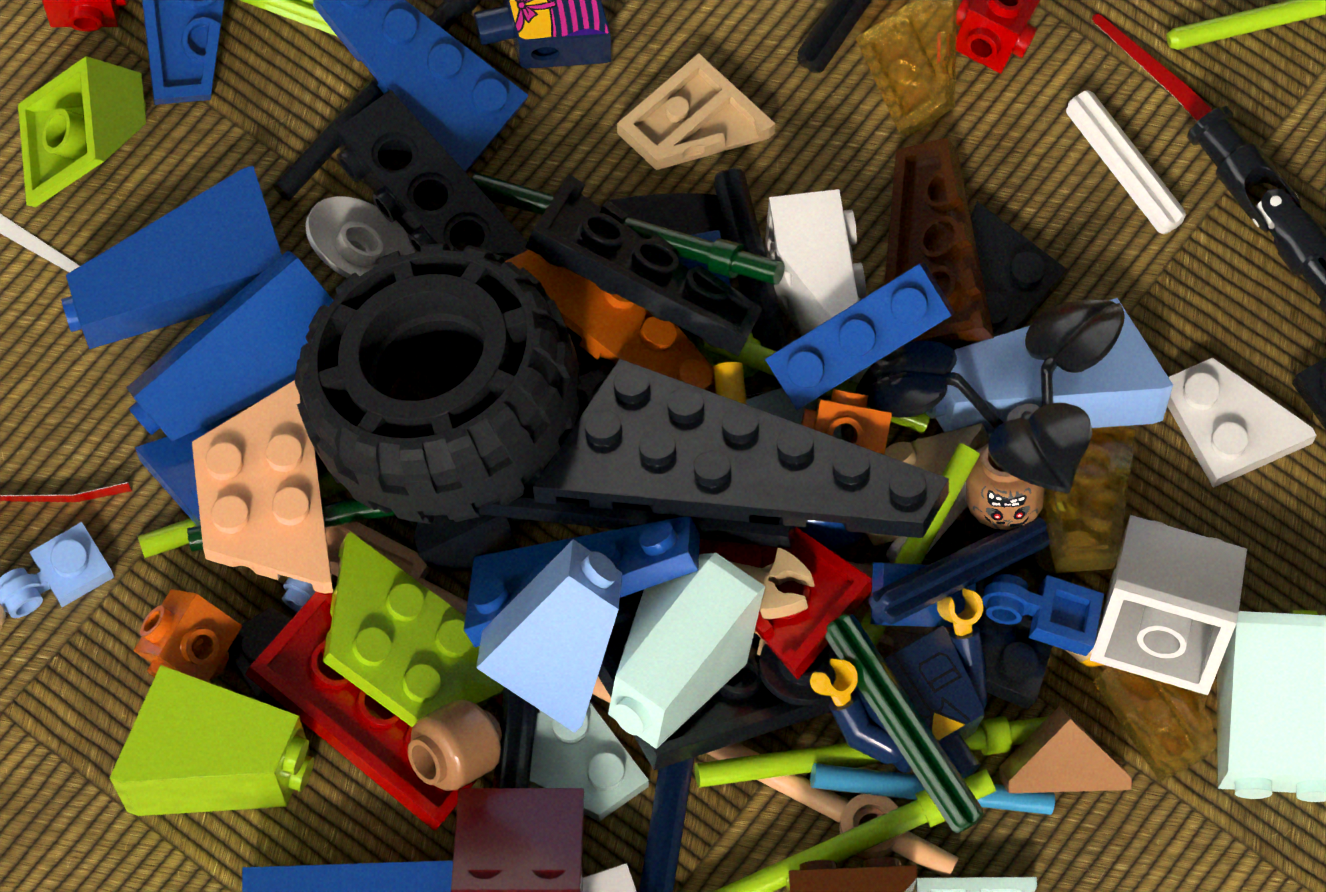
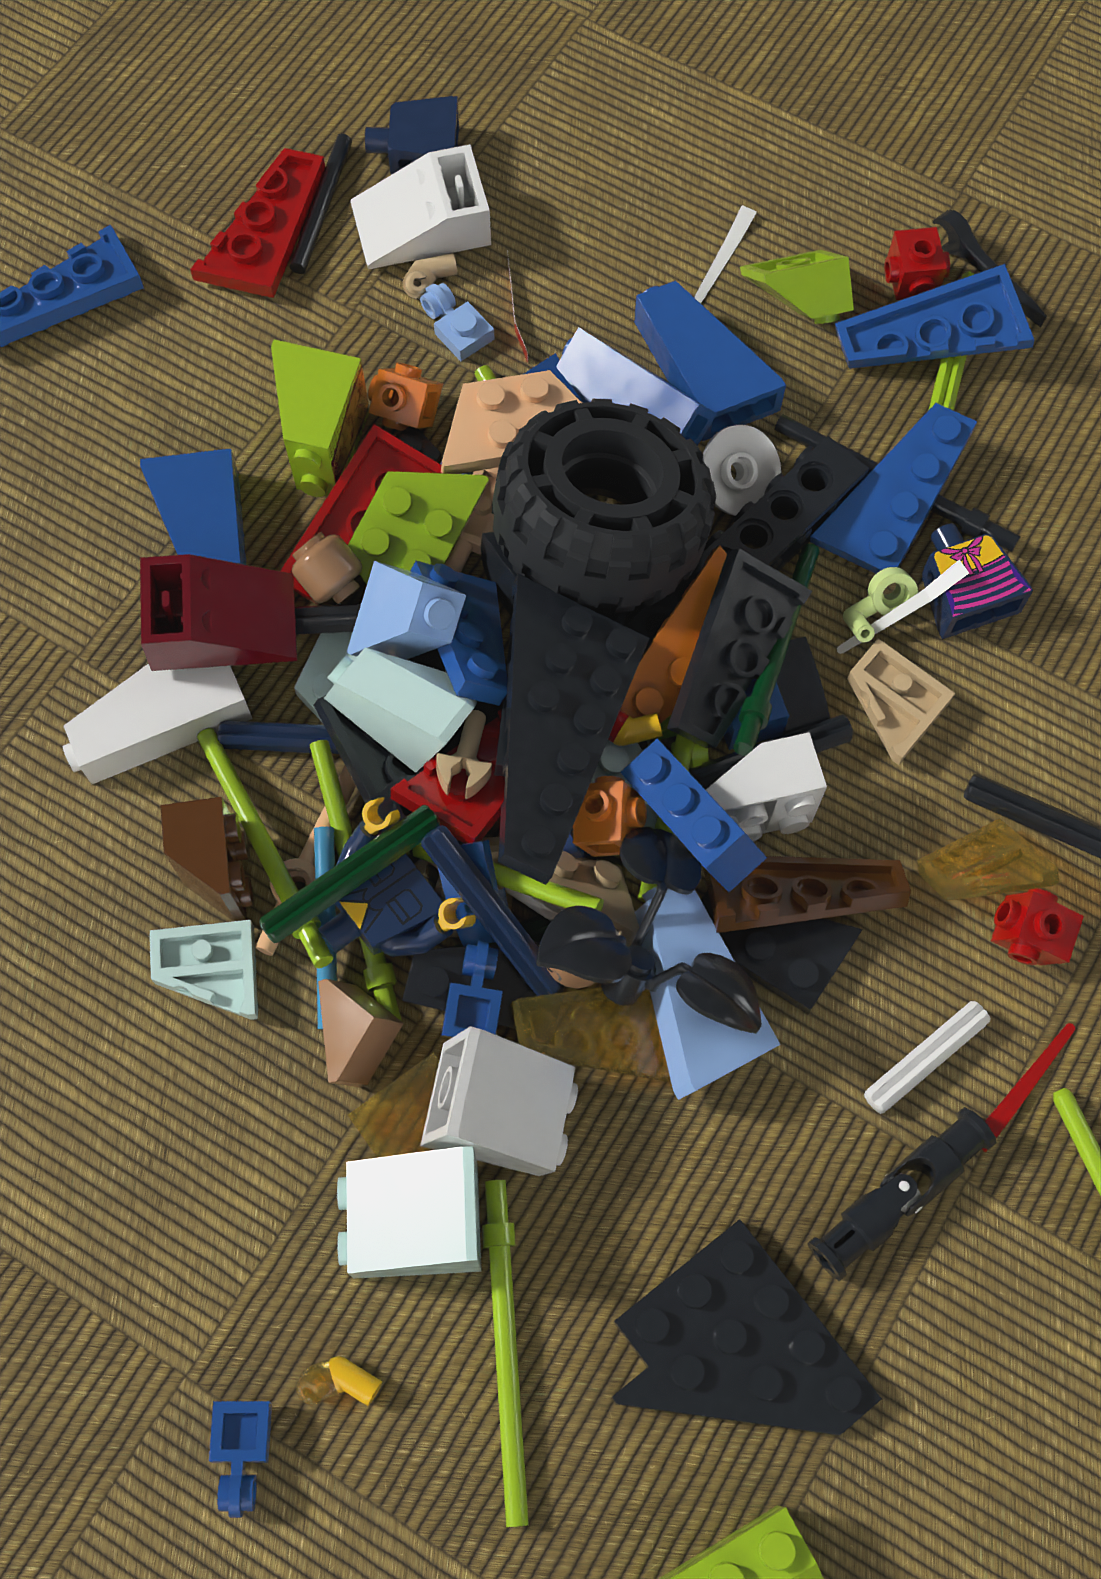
camera: 85 degrees right, 0 degrees up
(556, 104) = (876, 601): none -> yellowish green plate
(567, 46) = (932, 591): none -> white sticker
(1232, 422) = (688, 1163): white wing -> none

